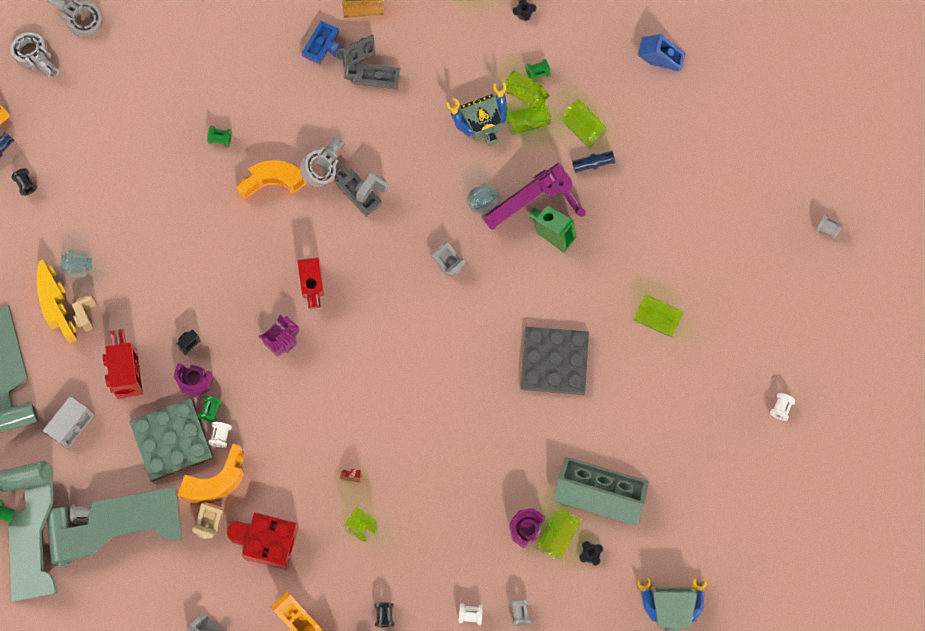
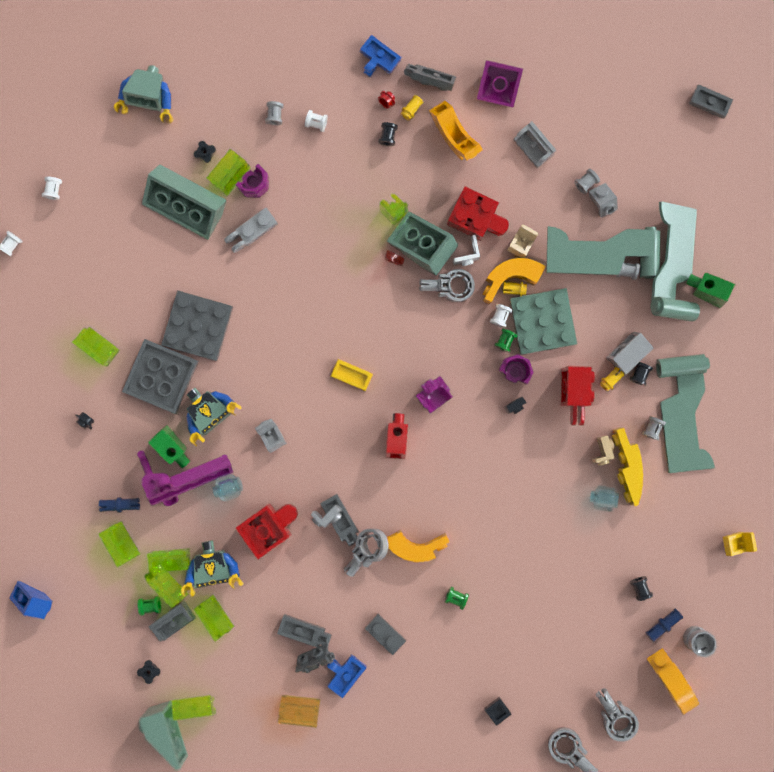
camera: 165 degrees left, 15 degrees up
(31, 347) = (654, 428): none -> light grey bush
(52, 402) = (641, 374): none -> black bush
(85, 389) = (610, 380): none -> yellow pin
(121, 589) = (604, 199): none -> light grey bracket
(144, 606) = (587, 181): none -> light grey bush
(158, 38) = (497, 711): none -> black plate
(208, 468) = (515, 288): none -> yellow pin
(266, 489) = (468, 260): none -> white bracket
(287, 463) = (437, 285): none -> light grey pin
(288, 89) = (385, 634): none -> dark grey plate
(321, 497) = (423, 242): none -> sand green slope
(374, 341) = (351, 375): none -> yellow tile
(431, 165) = (267, 528): none -> red brick
(469, 71) = (213, 617): none -> clear neon green hinge
(512, 60) = (172, 621): none -> dark grey hinge
(517, 477) = (252, 229): none -> light grey hinge
(521, 269) = (207, 412): none -> torso
(581, 298) = (160, 376): none -> dark grey plate
(651, 237) = (84, 420): none -> black plate
(752, 476) = (52, 188): none -> white bush

